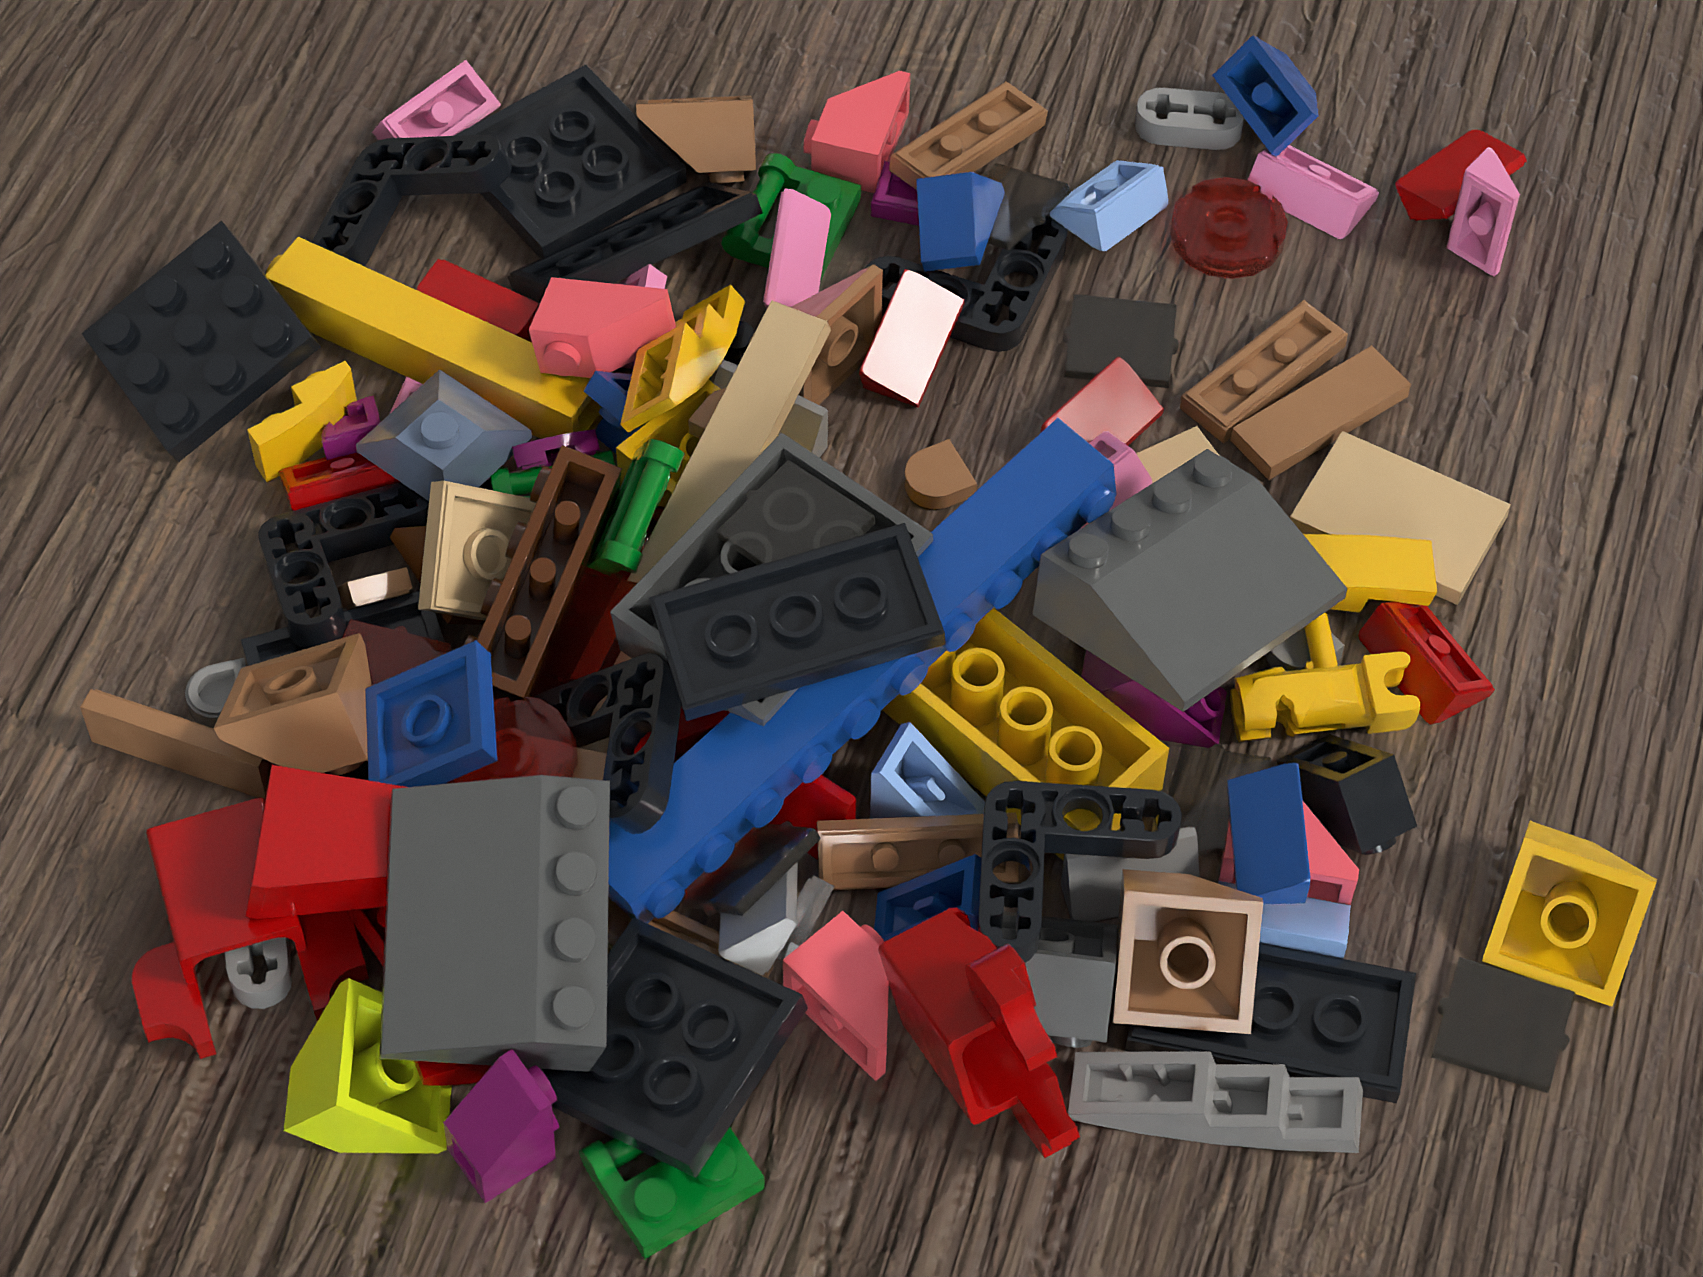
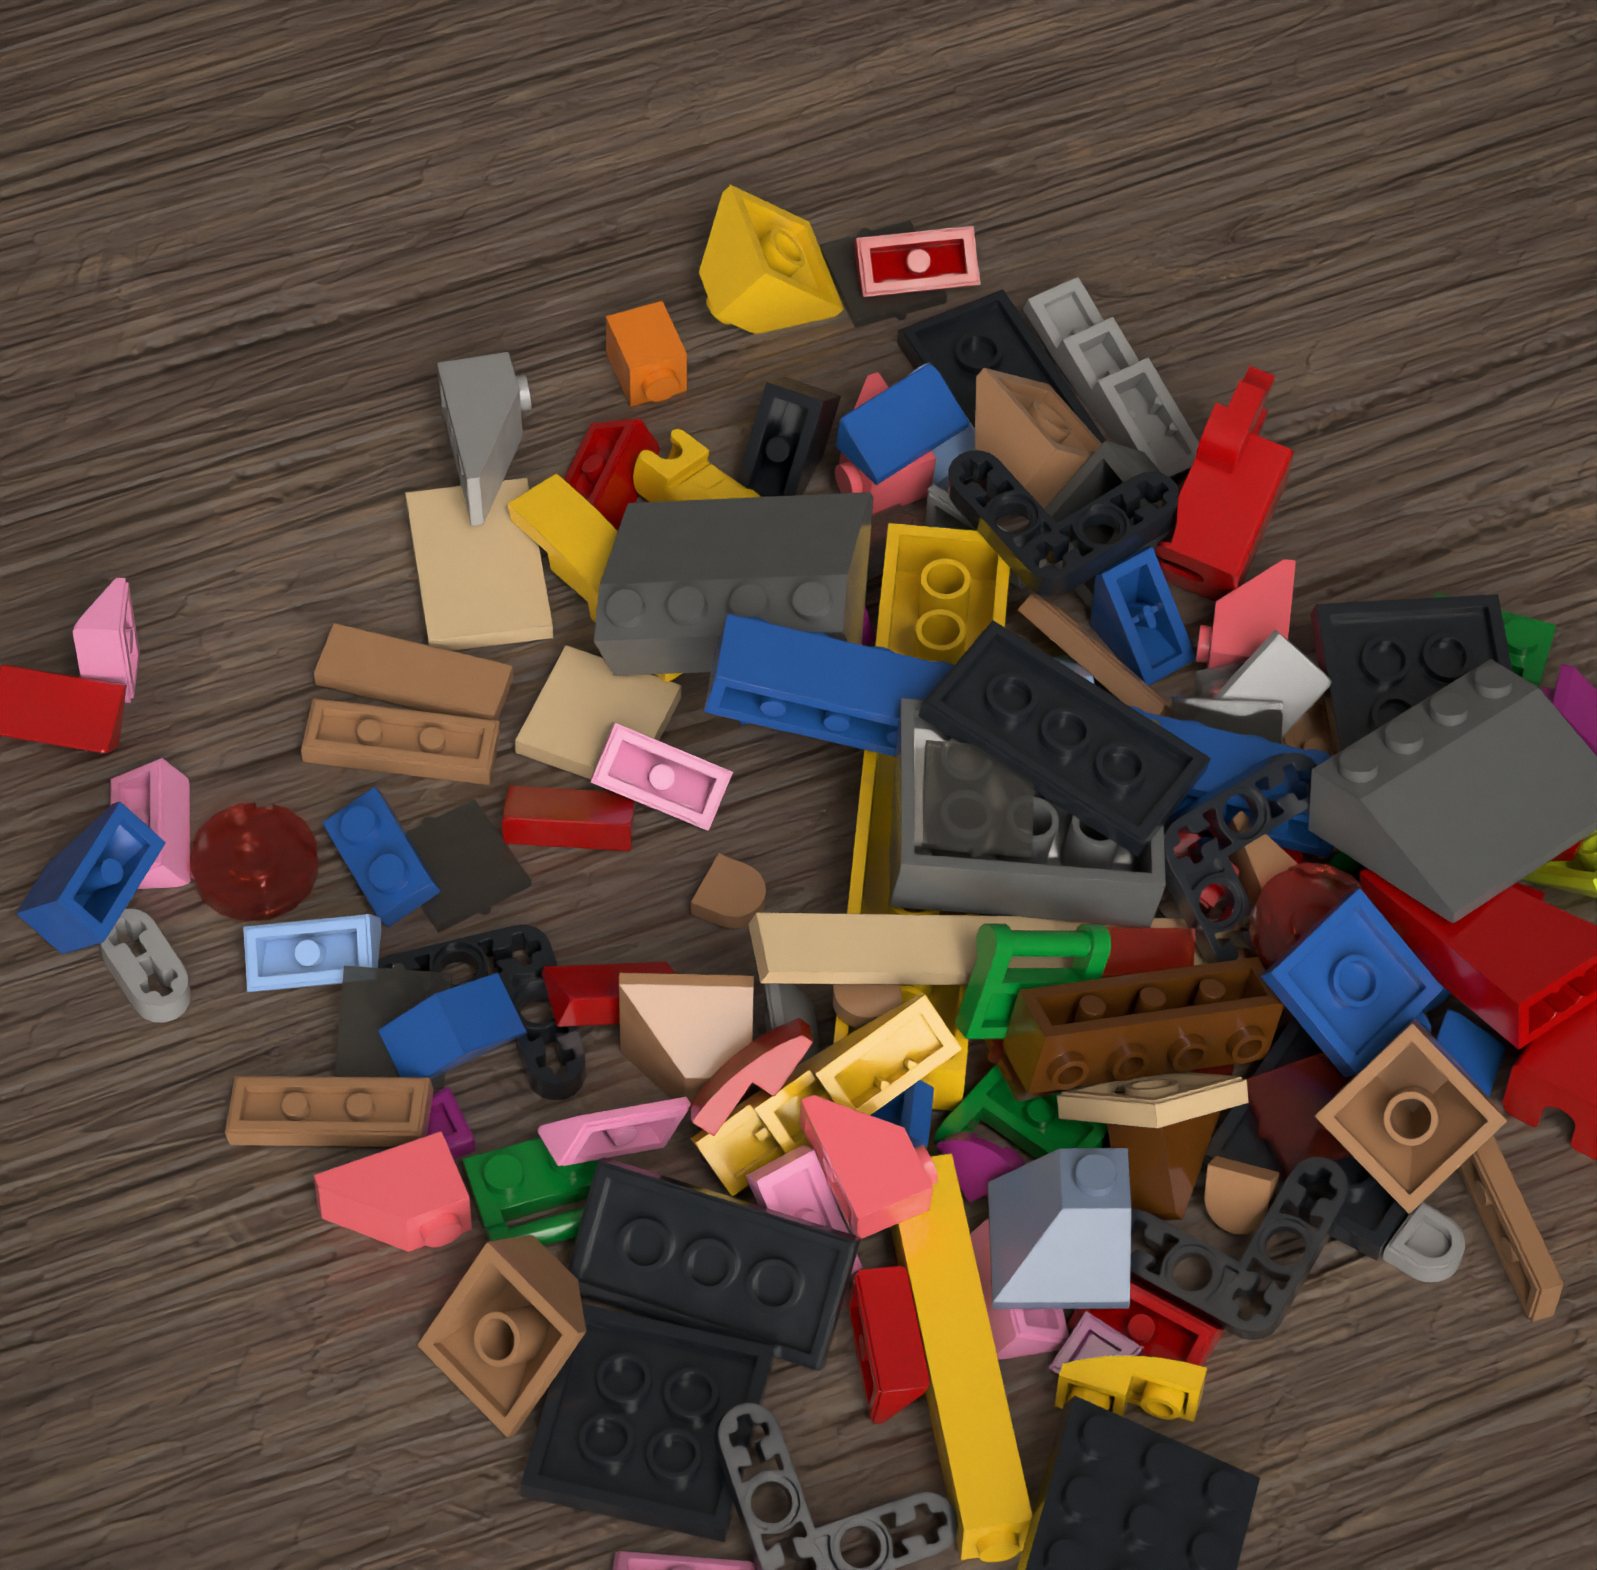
camera: 130 degrees left, 0 degrees up
(734, 314) = (764, 1062): none -> slope
(1161, 289) = (381, 857): none -> blue plate
(1489, 1044) = (916, 261): none -> slope
(1526, 572) = (483, 423): none -> light grey slope
(1529, 754) = (646, 354): none -> orange brick

